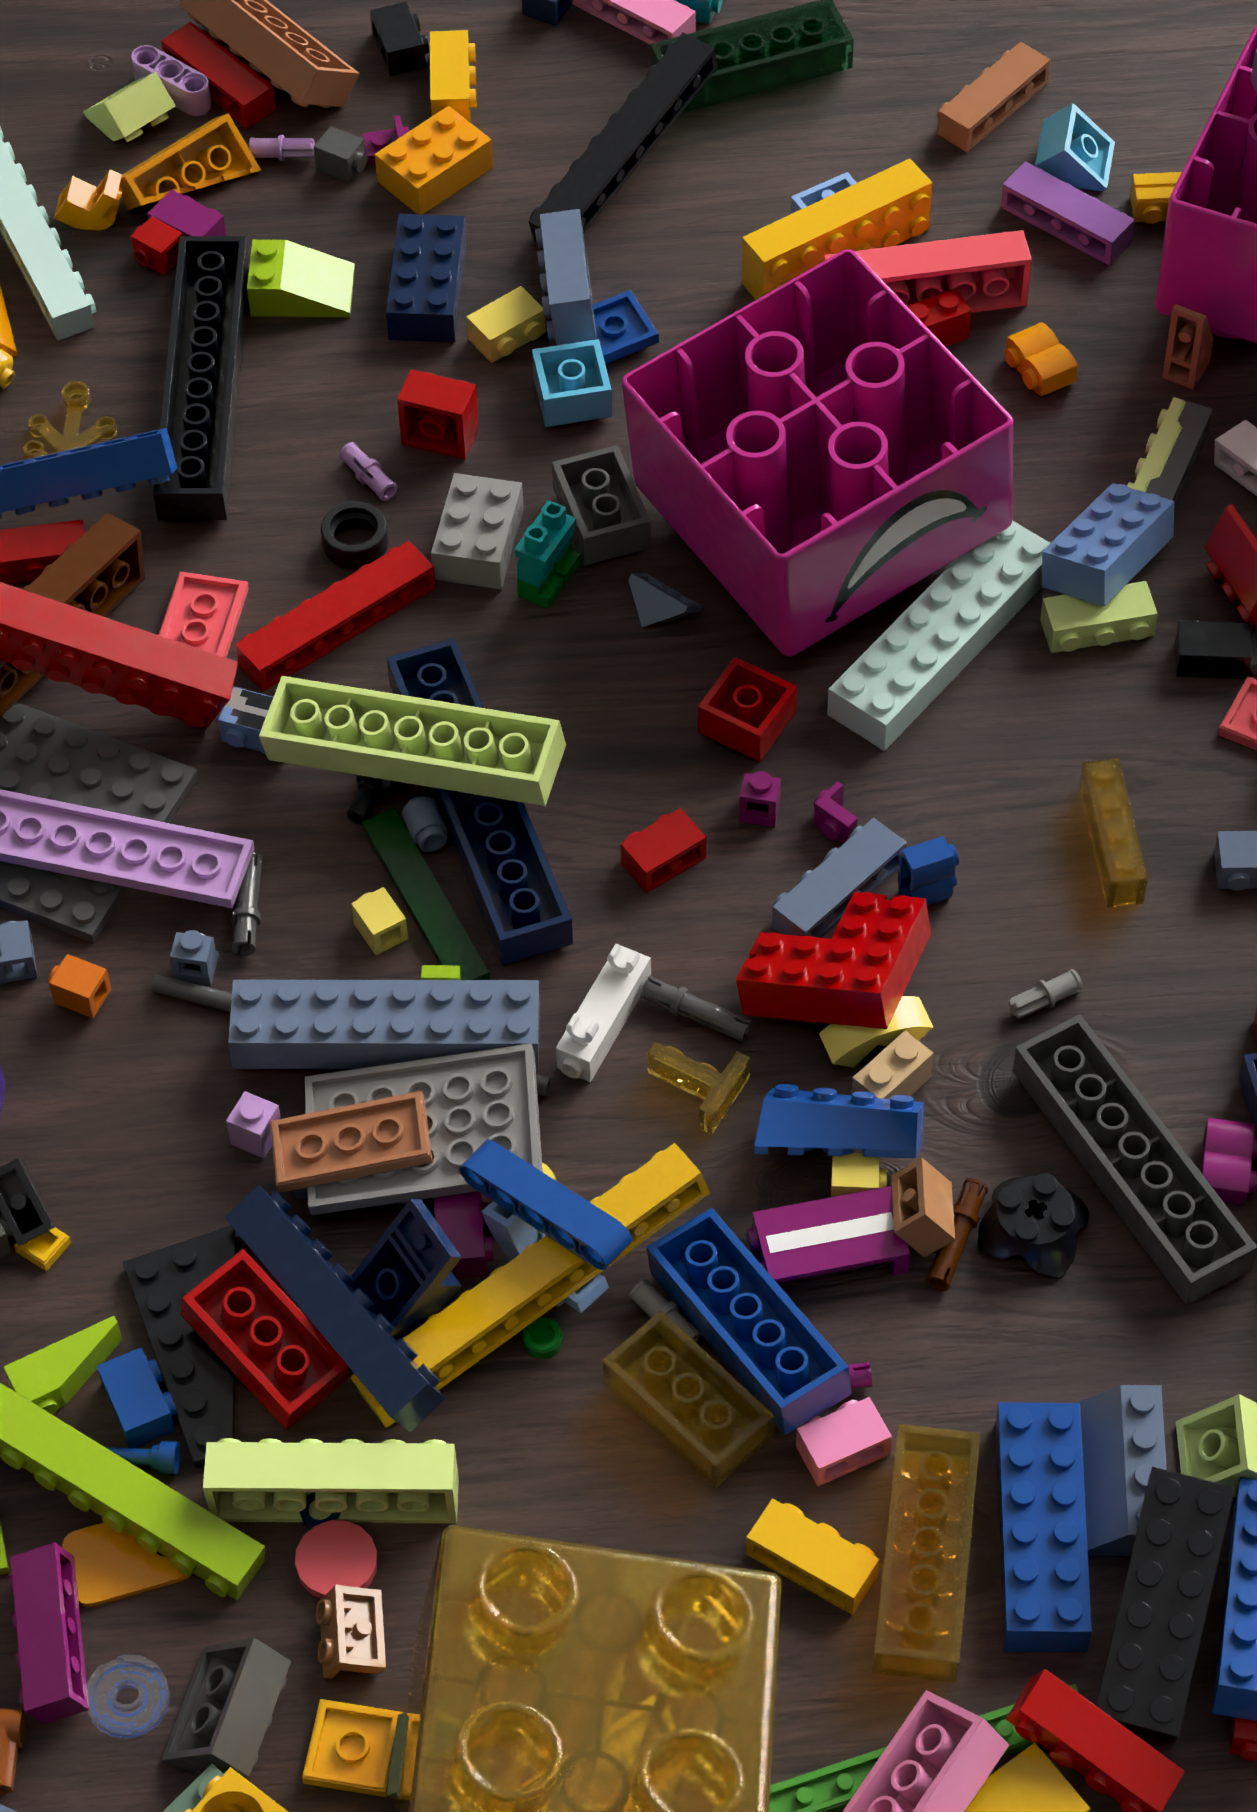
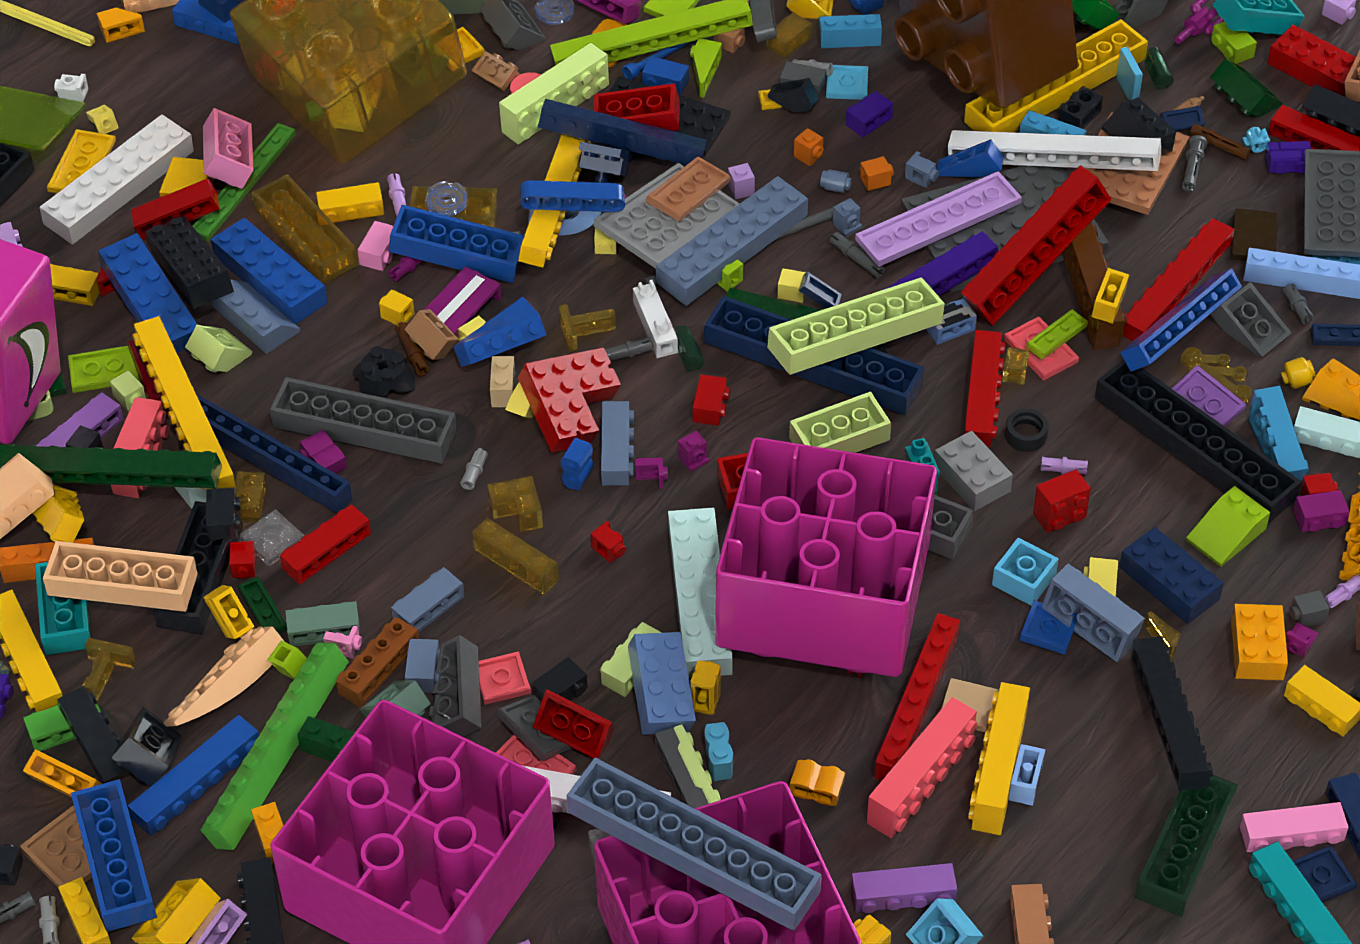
camera: 135 degrees right, 5 degrees down
(100, 518) = (1110, 295): none -> yellow brick
(105, 1103) = (808, 147): none -> orange brick
(118, 317) = (1275, 431): none -> dark azure wedge
(123, 406) = (1210, 396): none -> medium lavender tile
(136, 1026) = (835, 181): none -> sand blue brick
(169, 607) = (1057, 334): none -> lime tile
(209, 771) = (955, 265): none -> dark purple brick
(260, 607) = (1015, 366): none -> clear yellow brick
(363, 876) = (819, 291): none -> tile
(511, 238) = (1158, 627): none -> clear yellow slope
(566, 681) = (843, 426): none -> yellowish green brick
(615, 927) = (688, 349): none -> clear green brick
(700, 1414) = (449, 207): none -> clear tile
(727, 1518) = (396, 192): none -> lavender pin
(919, 1312) = (396, 307): none -> yellow brick
(983, 769) = (607, 542): none -> red brick
(1036, 898) = (516, 498): none -> clear yellow brick
(1058, 505) = (706, 686): none -> yellow brick
(1112, 454) = (718, 751): none -> medium azure brick

